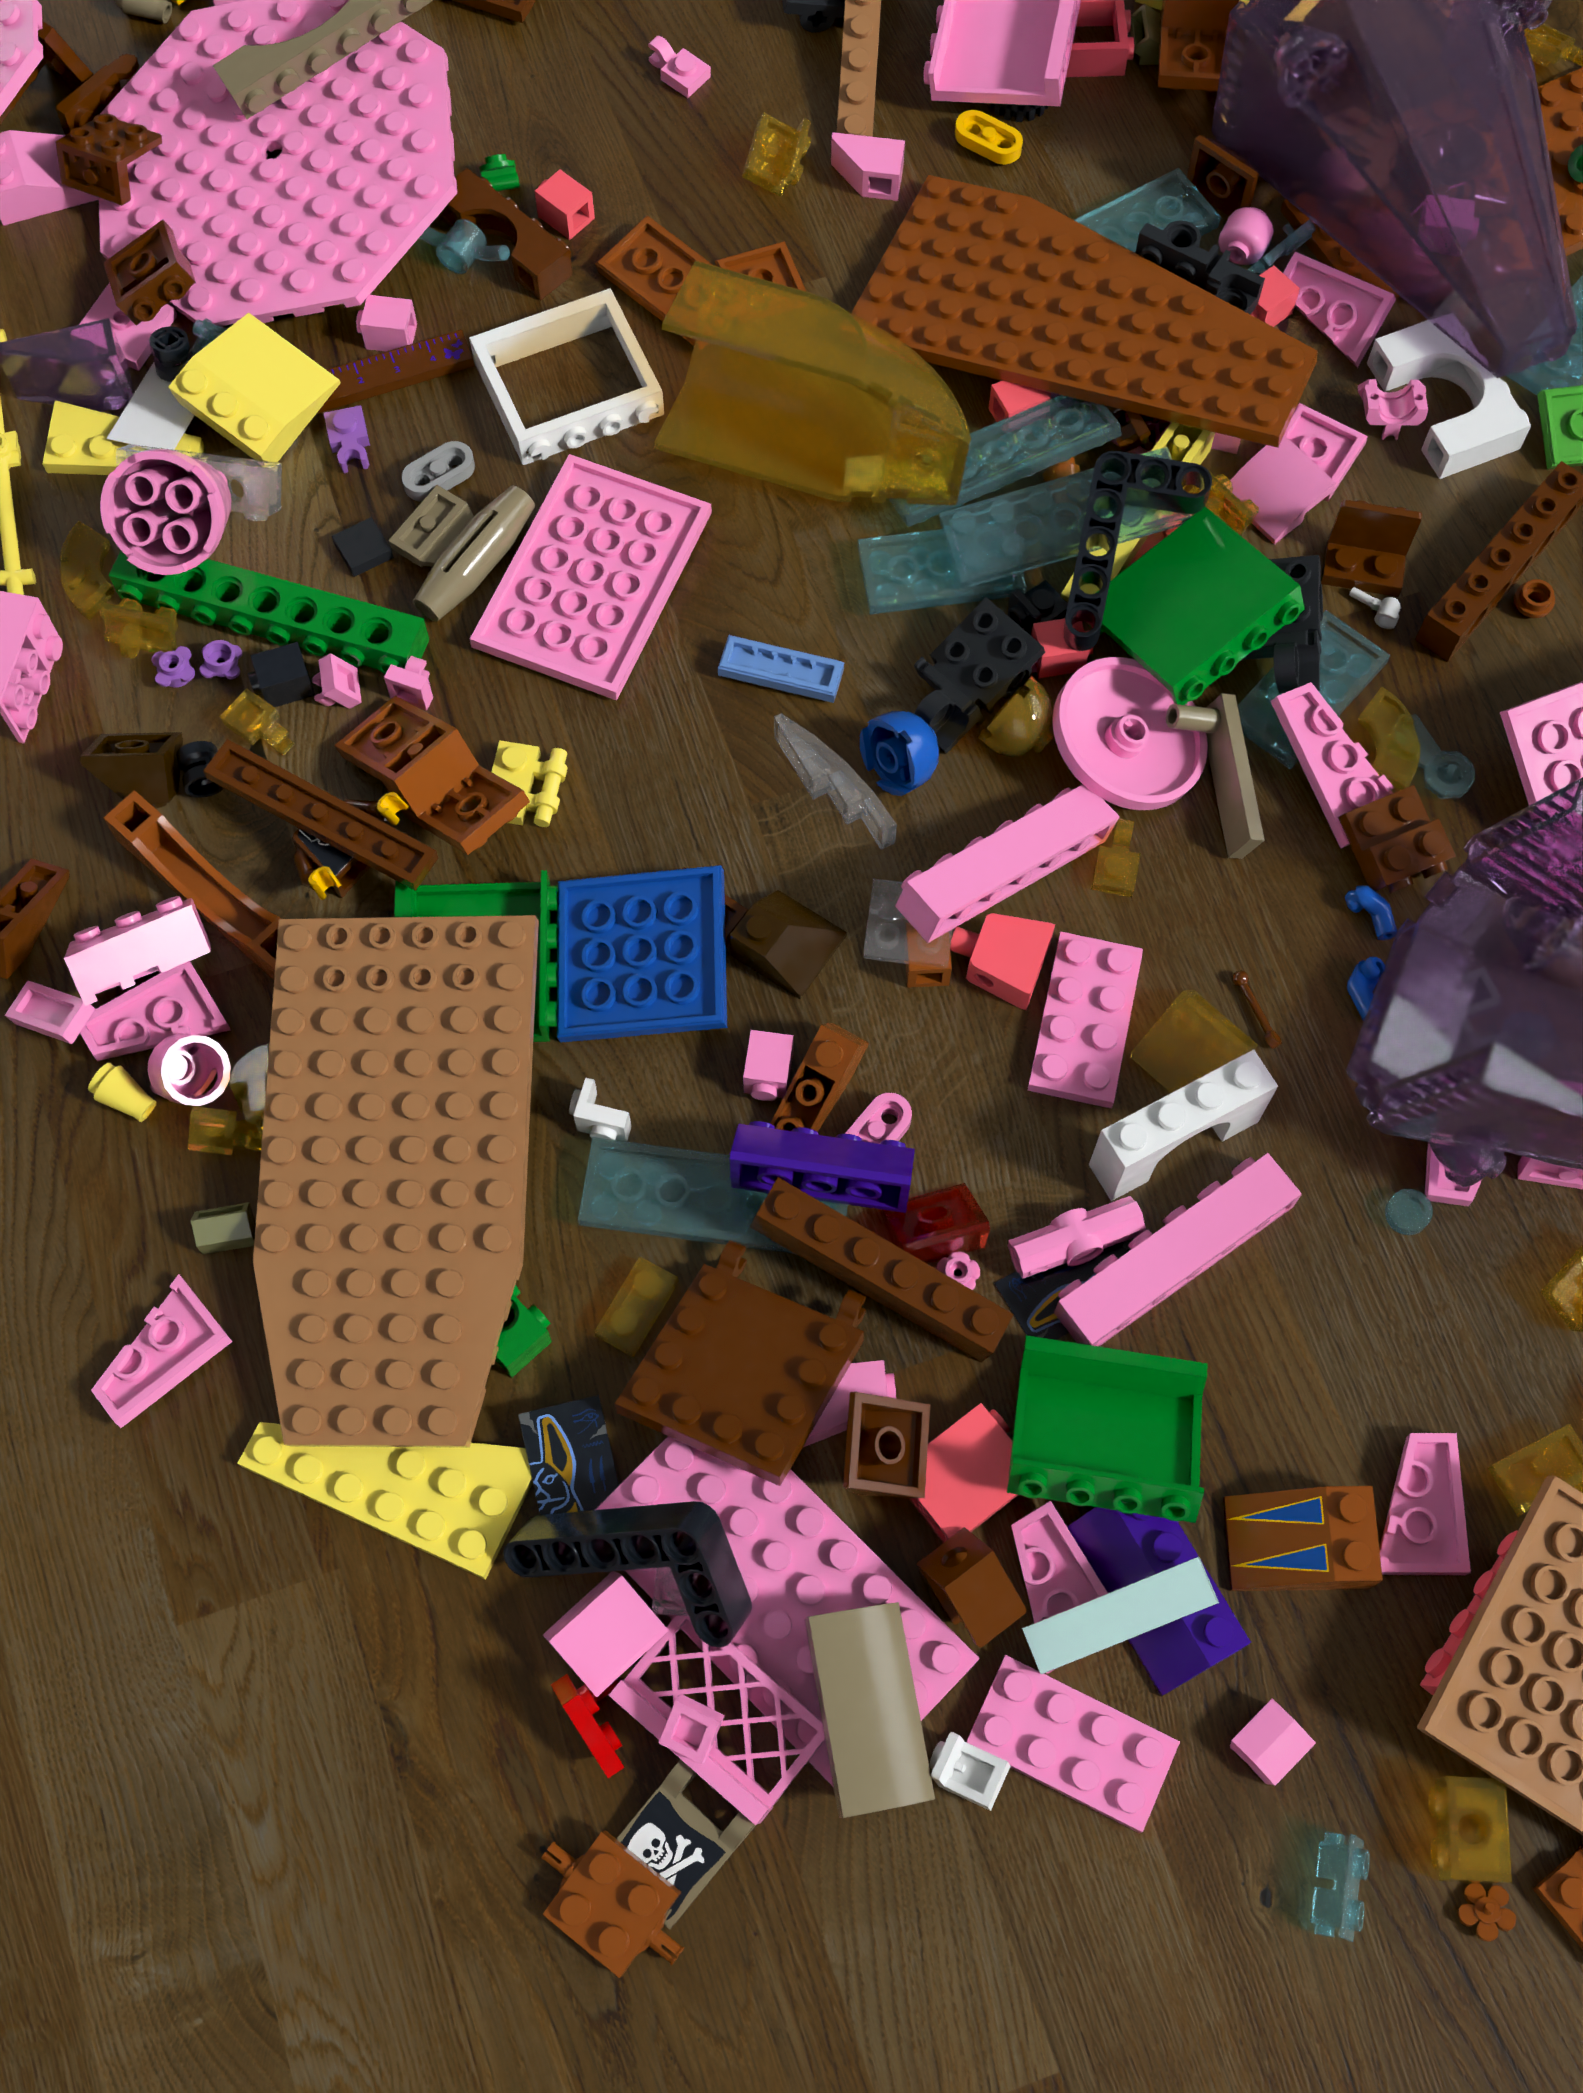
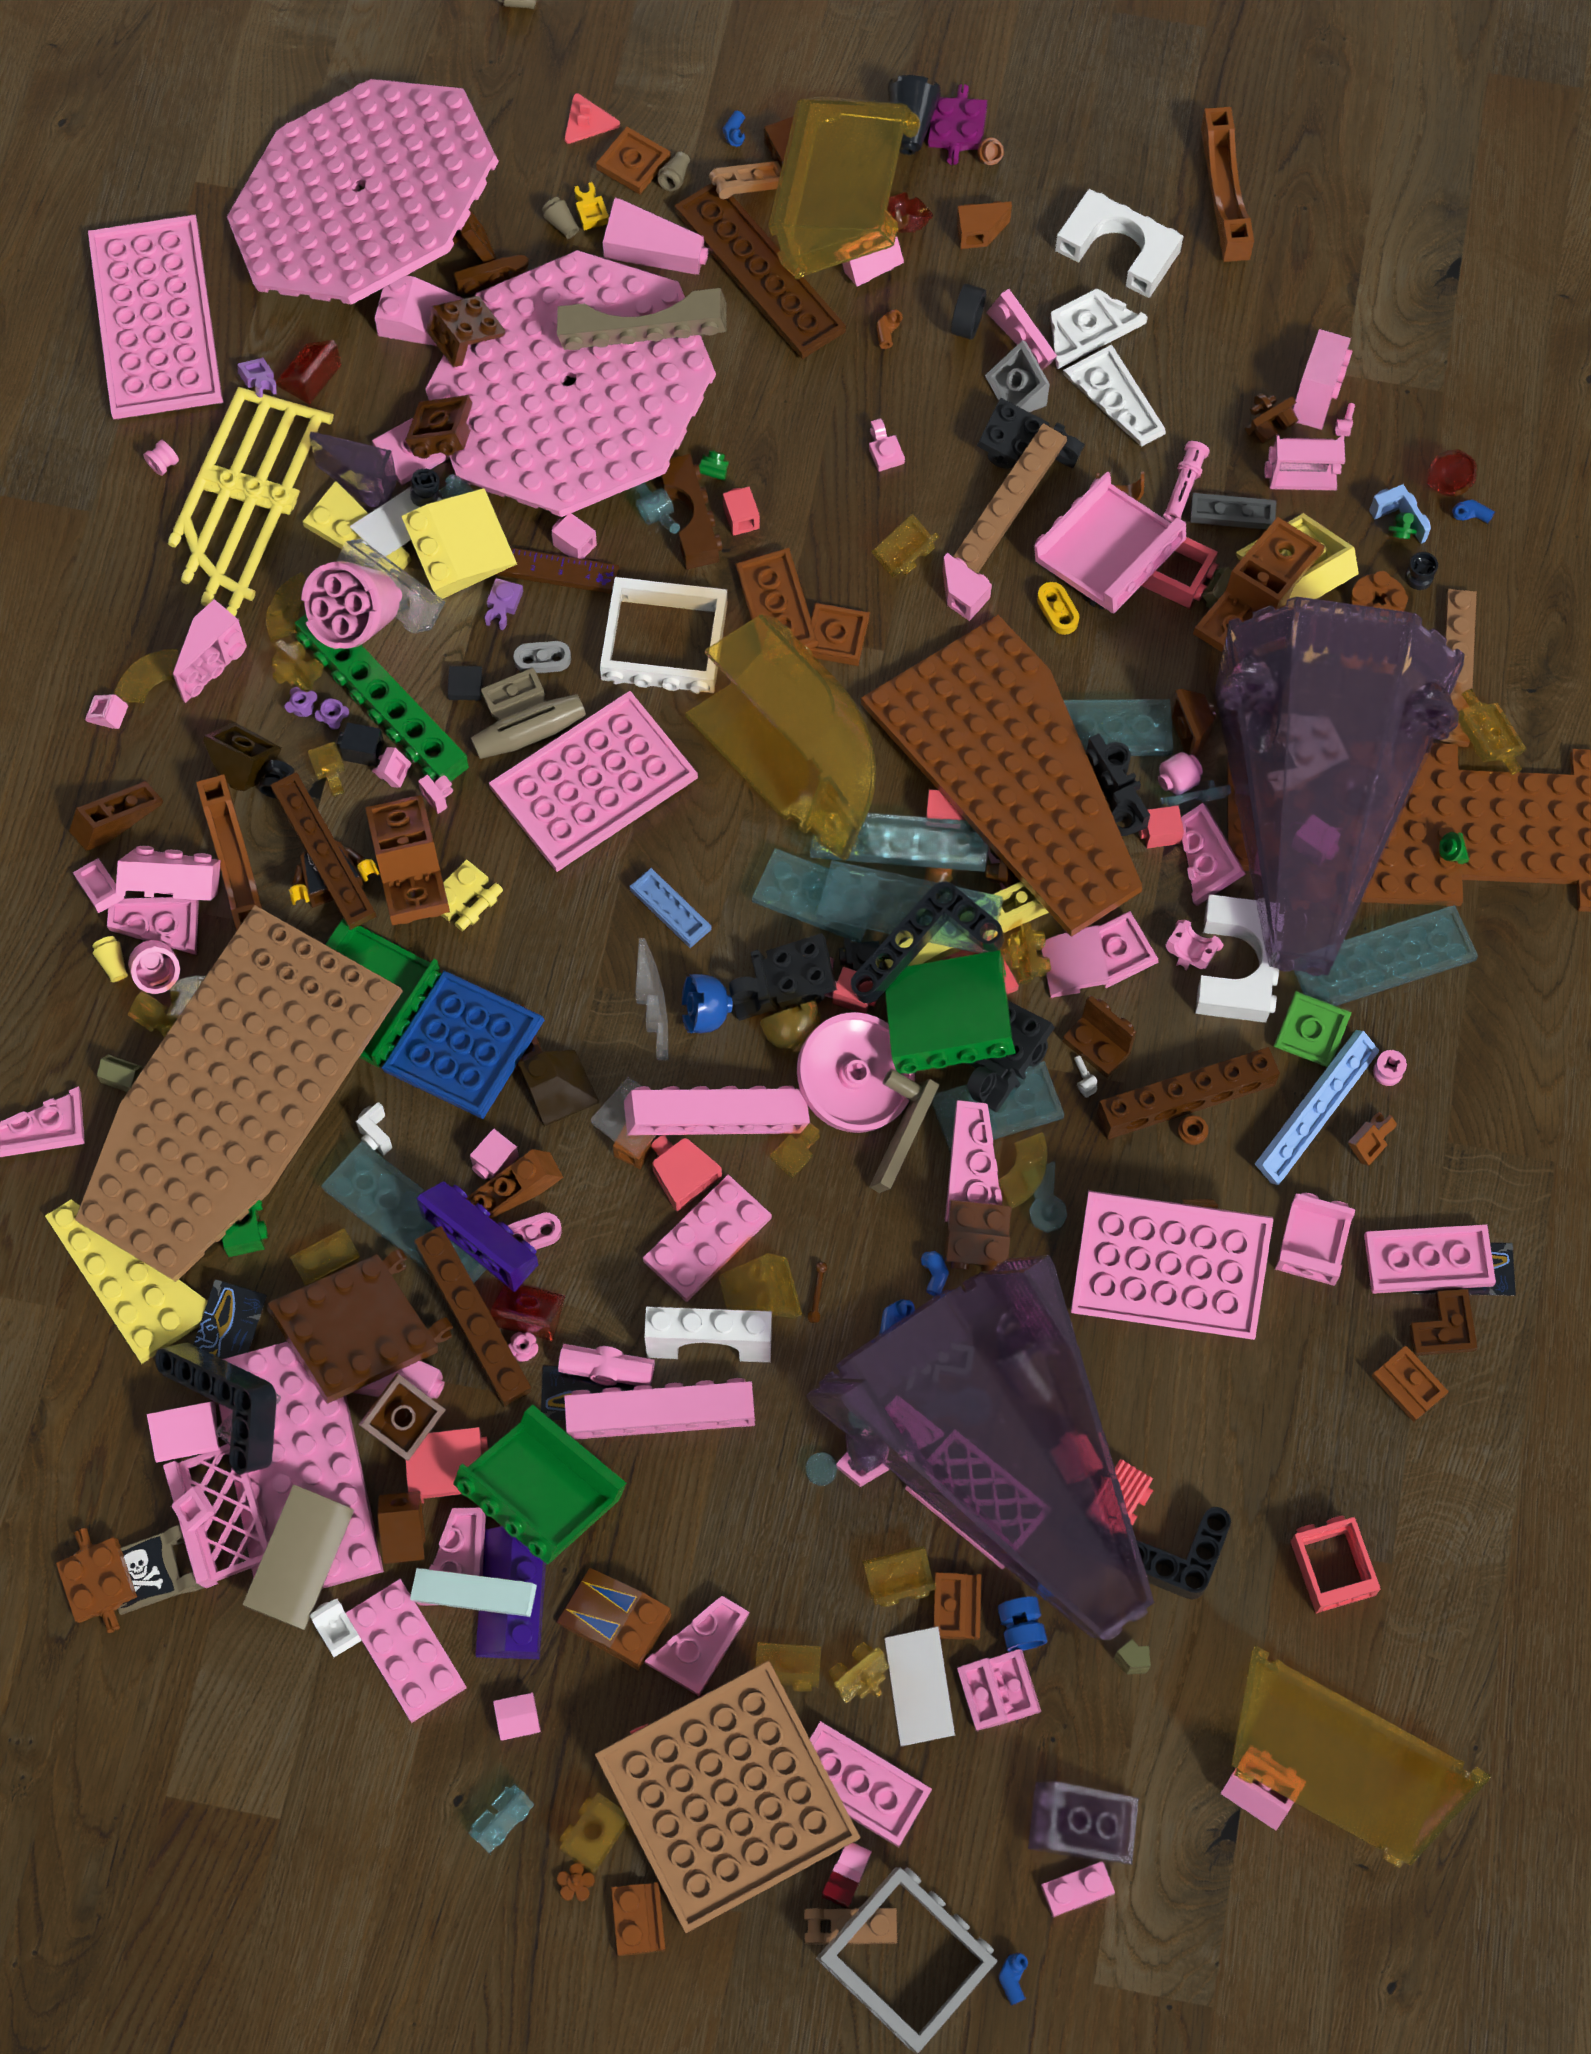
camera: 30 degrees right, 0 degrees up
(580, 1706) = (141, 1462): red plate -> none

